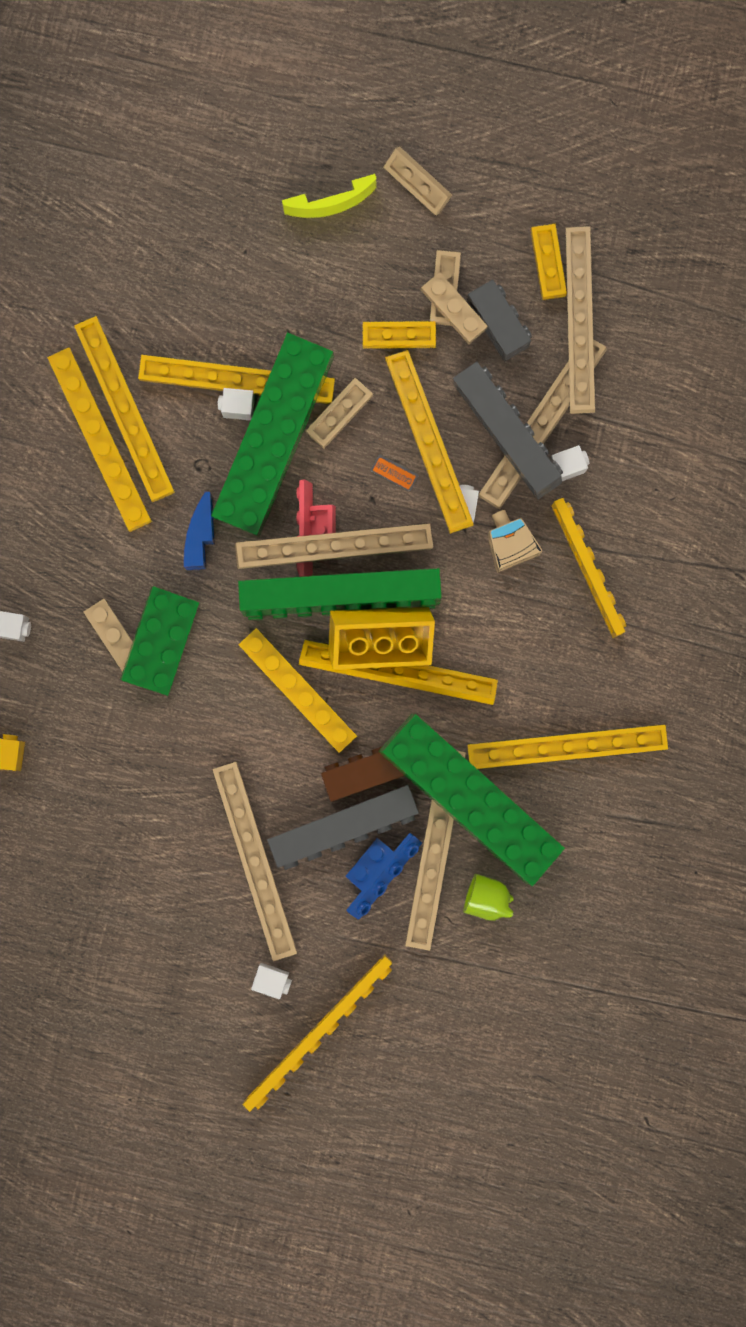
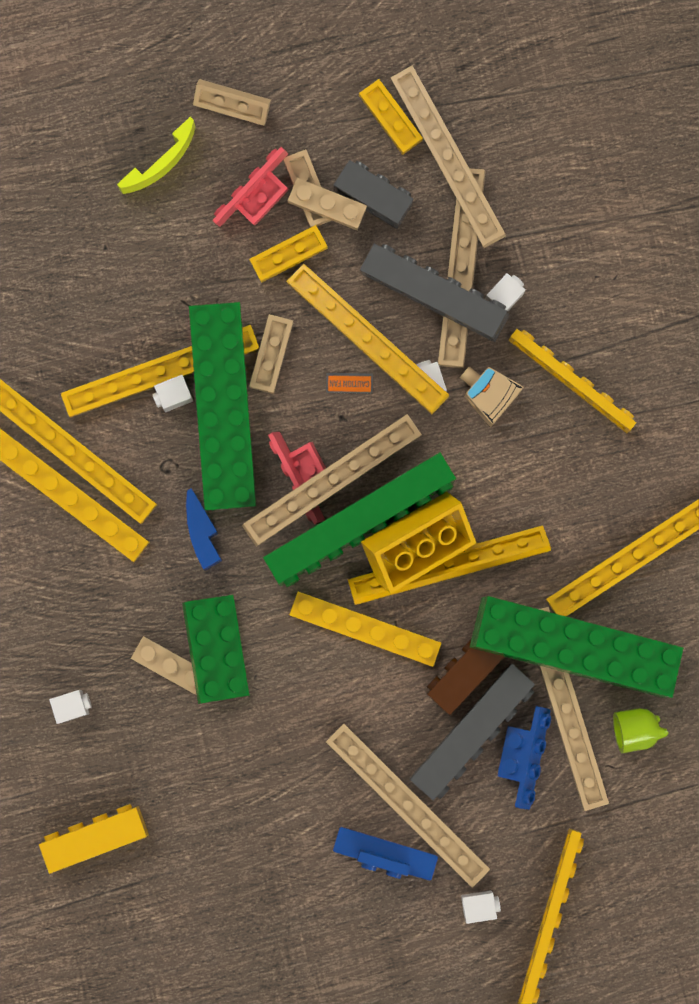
camera: 30 degrees left, 0 degrees up
(213, 894) = (384, 854): none -> blue bracket
(398, 270) = (258, 194): none -> coral bracket

